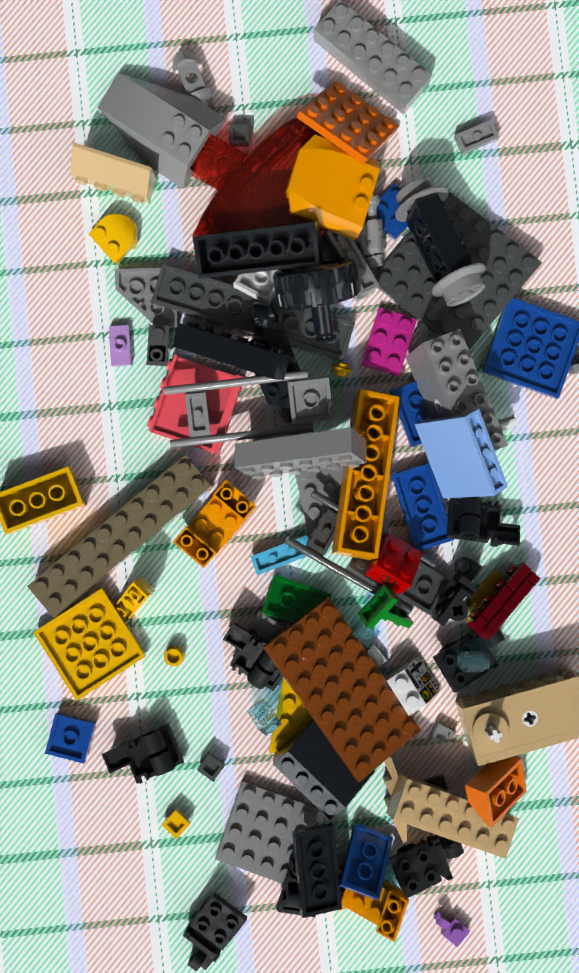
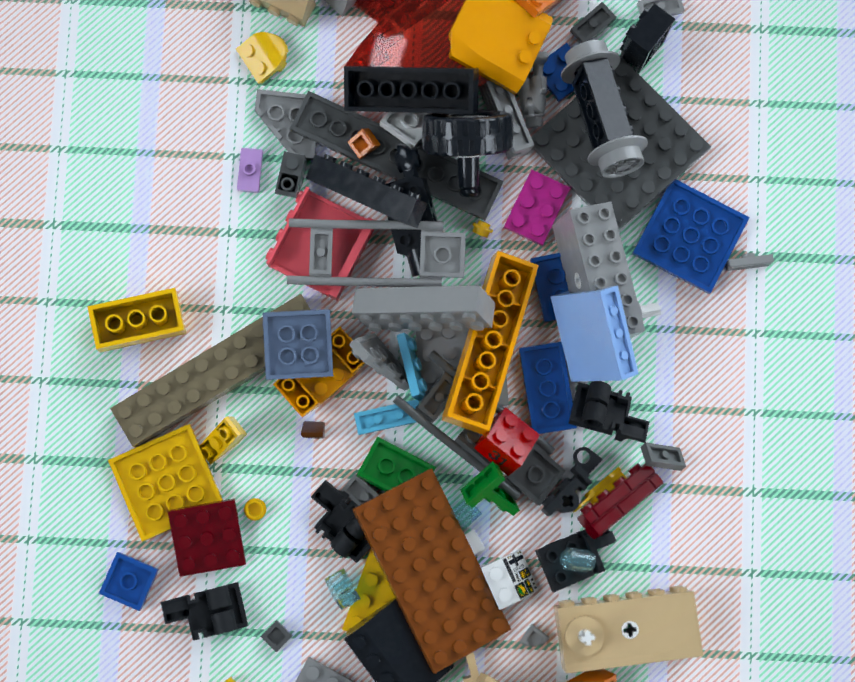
camera: 10 degrees right, 5 degrees down
(134, 688) = (207, 537): none -> dark red plate
(189, 503) = (297, 344): none -> sand blue plate
(215, 576) = (313, 430): none -> reddish brown slope
(221, 305) = (363, 143): none -> orange slope
(268, 505) = (378, 356): none -> light grey plate
(296, 506) = (412, 366): none -> medium azure plate
(416, 162) = (593, 23): none -> dark grey plate
(469, 167) = (646, 37): none -> black brick
(536, 555) = (663, 456): none -> dark grey plate

